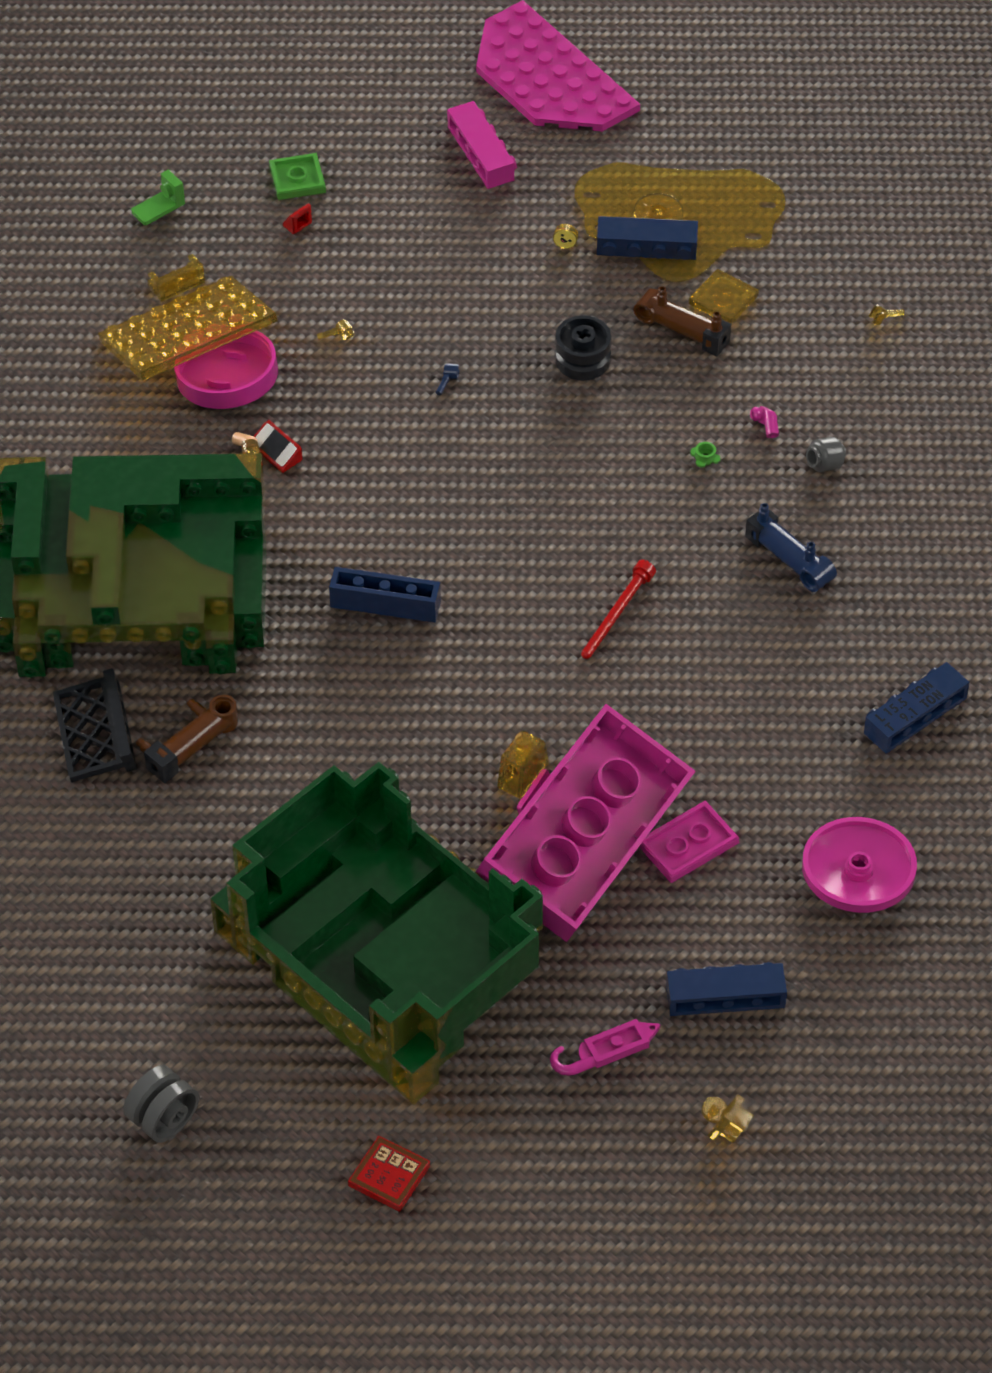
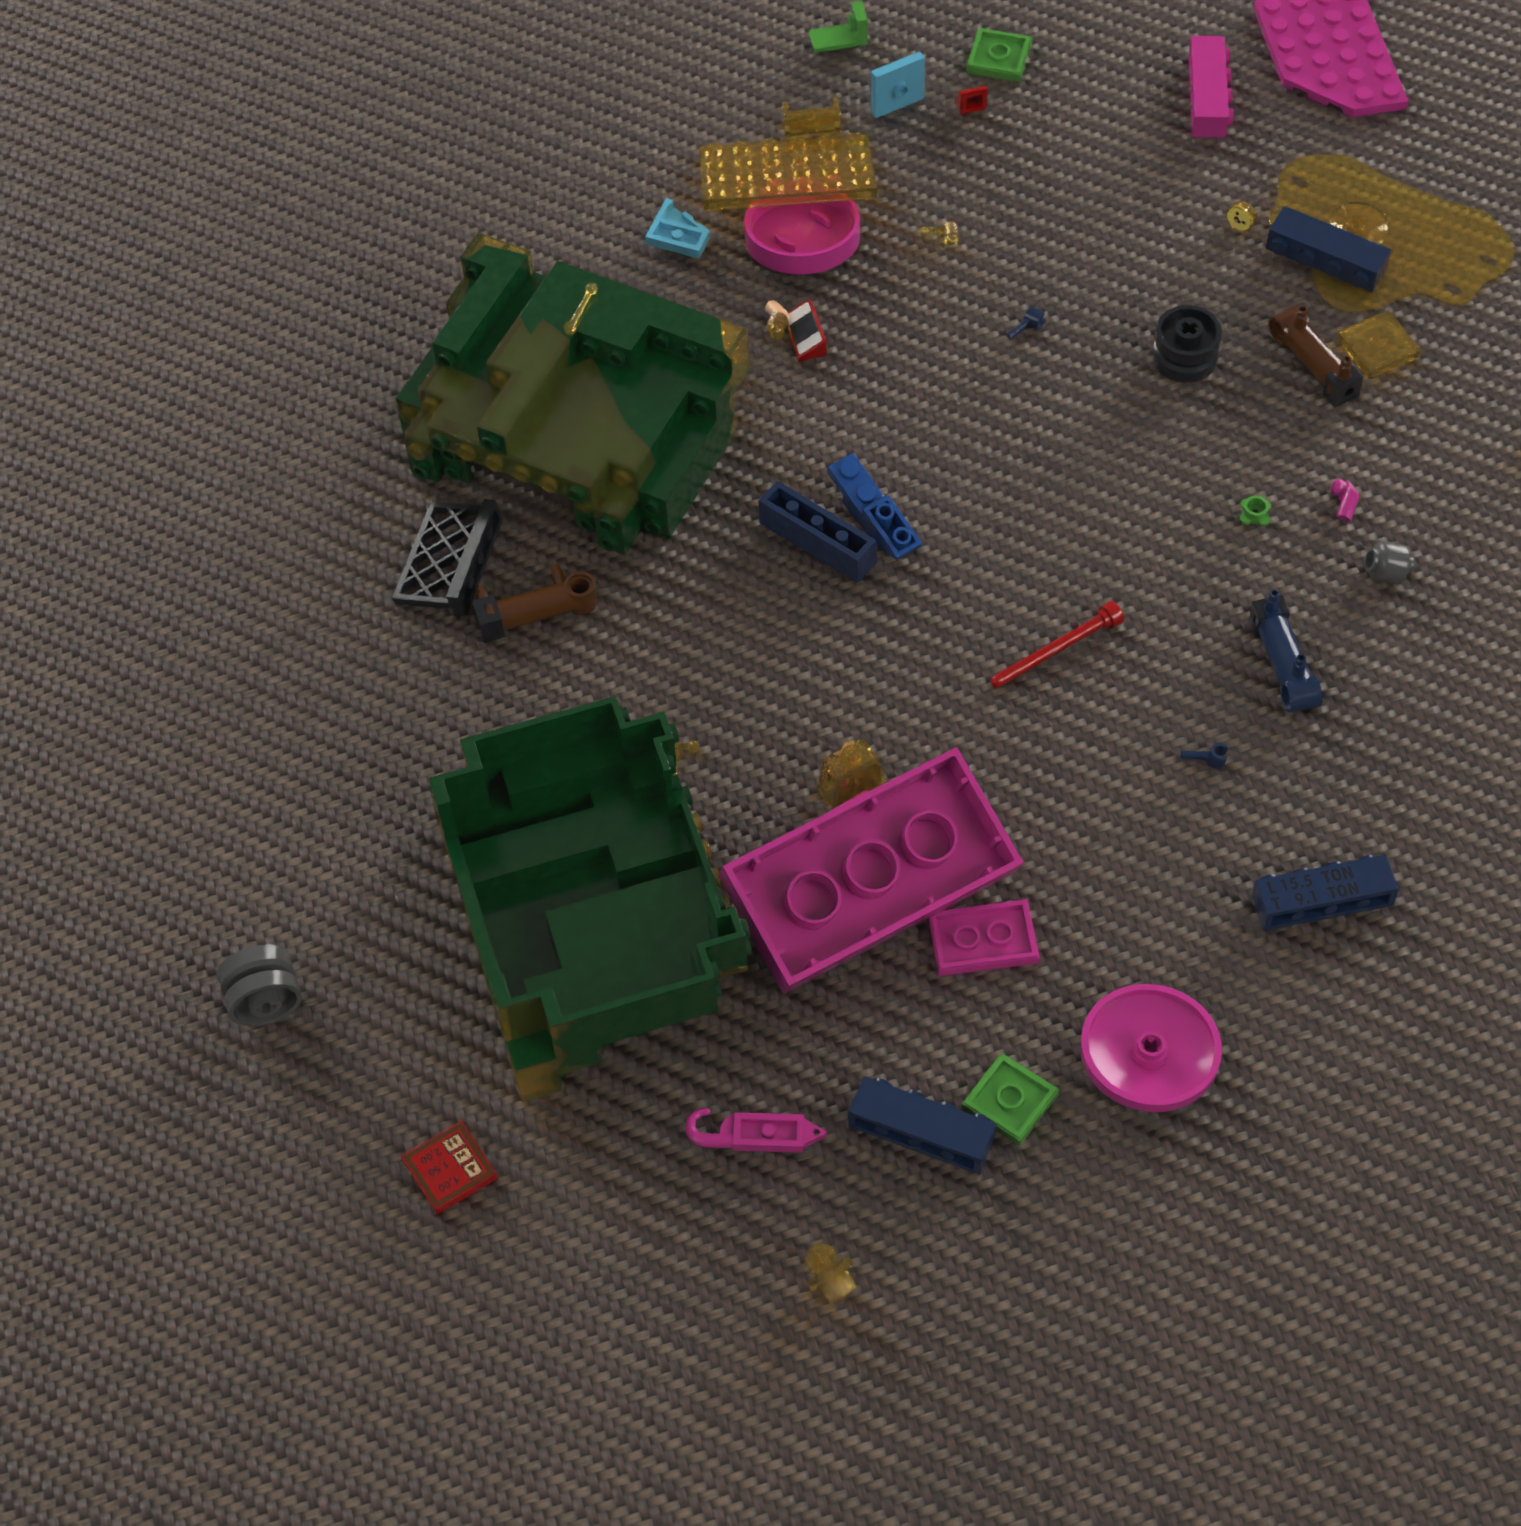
camera: 30 degrees right, 5 degrees up
(118, 503) = (570, 326): none -> clear yellow hinge
(123, 407) = (677, 232): none -> medium azure wing
(236, 226) = (897, 84): none -> medium azure plate
(413, 562) = (871, 509): none -> blue slope
(777, 942) = (1011, 1098): none -> bright green tile
(779, 645) = (1210, 756): none -> dark blue hand

